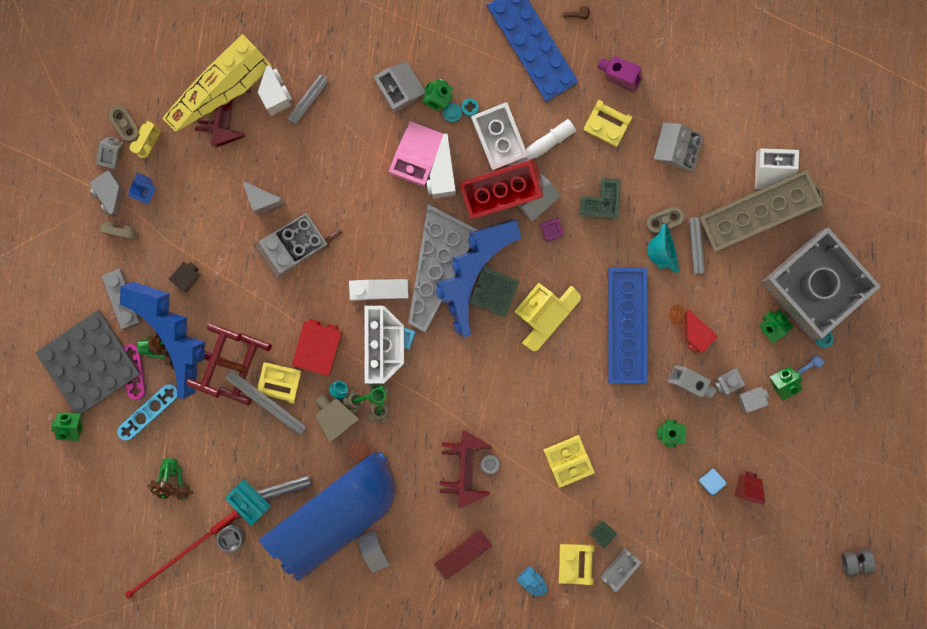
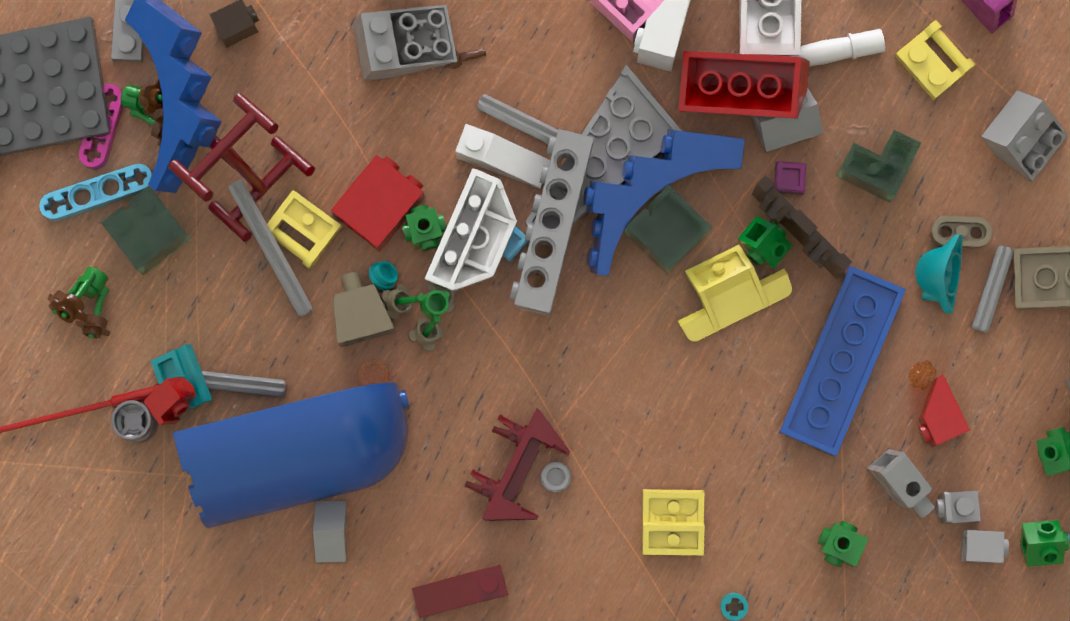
camera: 25 degrees right, 5 degrees down
(186, 424) = (146, 231): none -> clear green piece
(247, 517) = (170, 400): none -> red brick
(358, 348) = (428, 238): none -> green brick
(378, 263) = (516, 118): none -> light grey axle
(422, 268) = (578, 149): none -> light grey brick
(553, 275) = (769, 246): none -> green brick
(585, 266) = (801, 227): none -> dark brown hinge
(629, 496) = (741, 613): none -> teal bush

